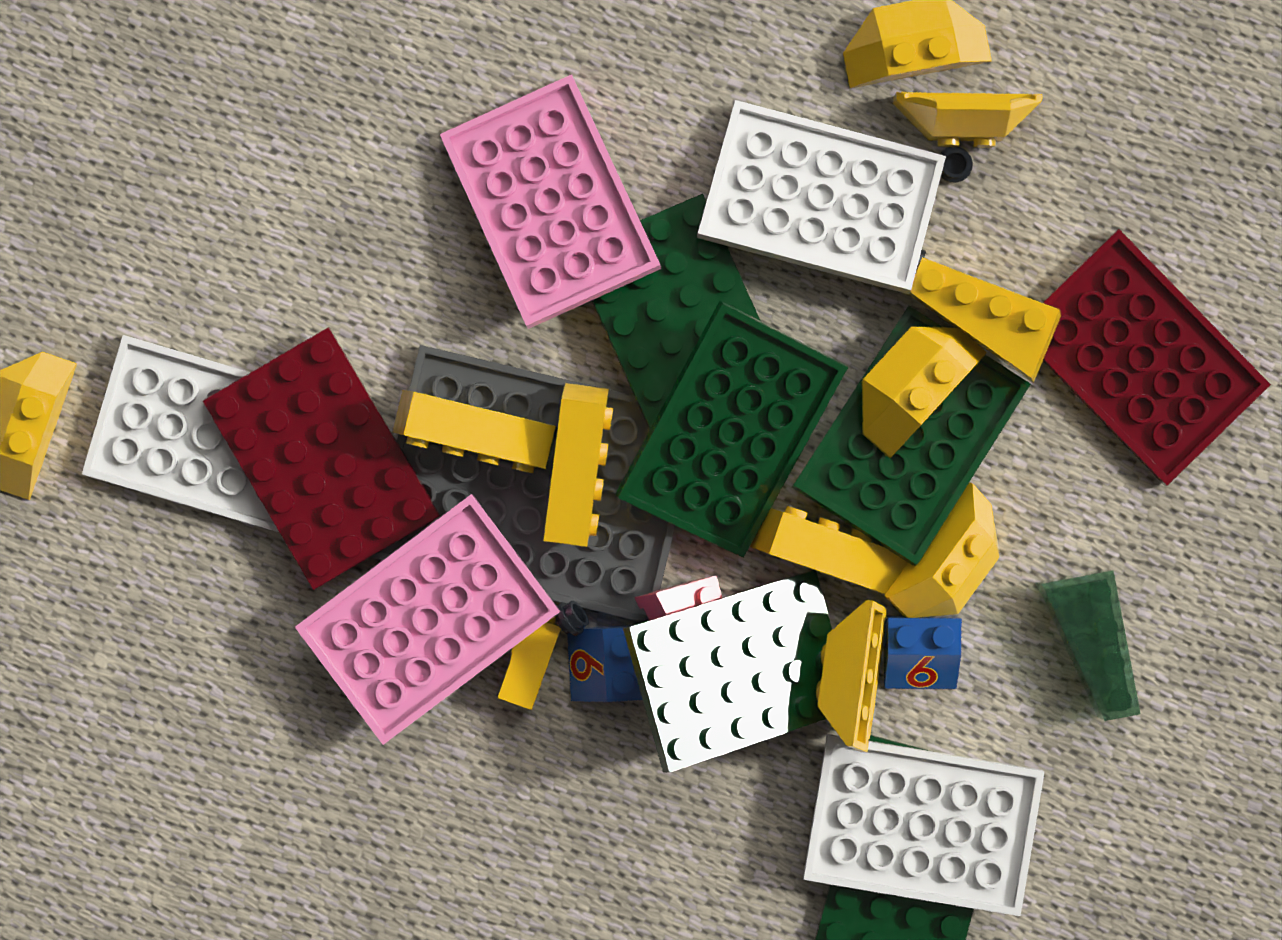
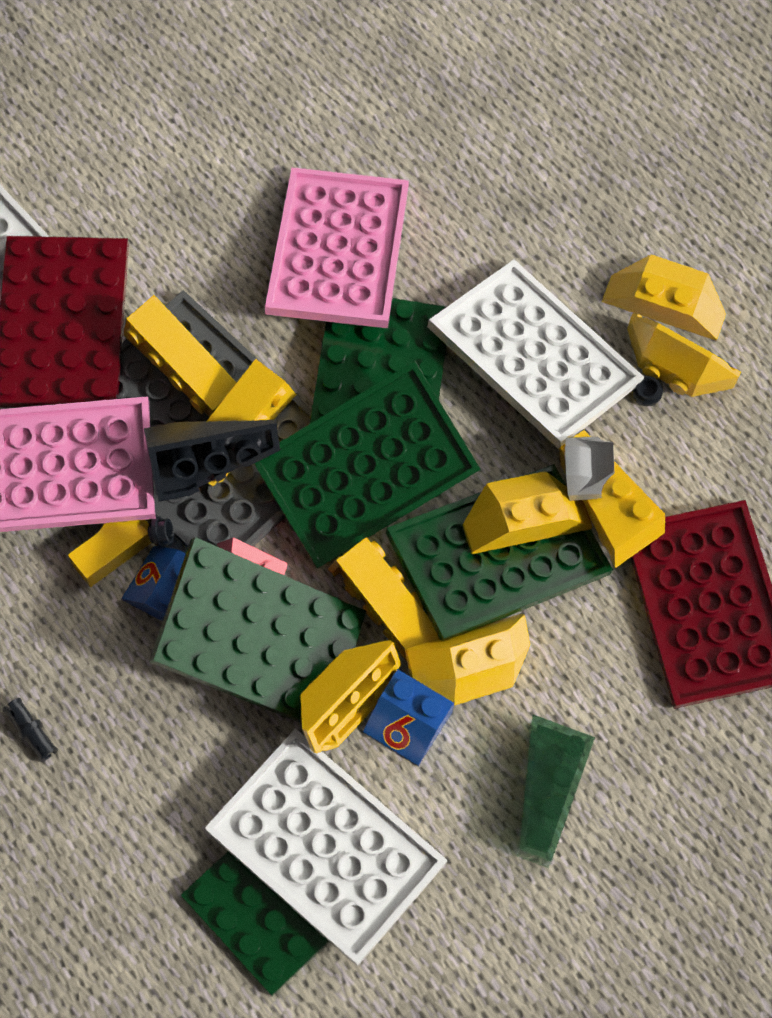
camera: 30 degrees right, 20 degrees down
(561, 531) = (198, 452): none -> black wedge
(573, 881) = (30, 729): none -> black pin
(955, 303) = (588, 466): none -> light grey slope

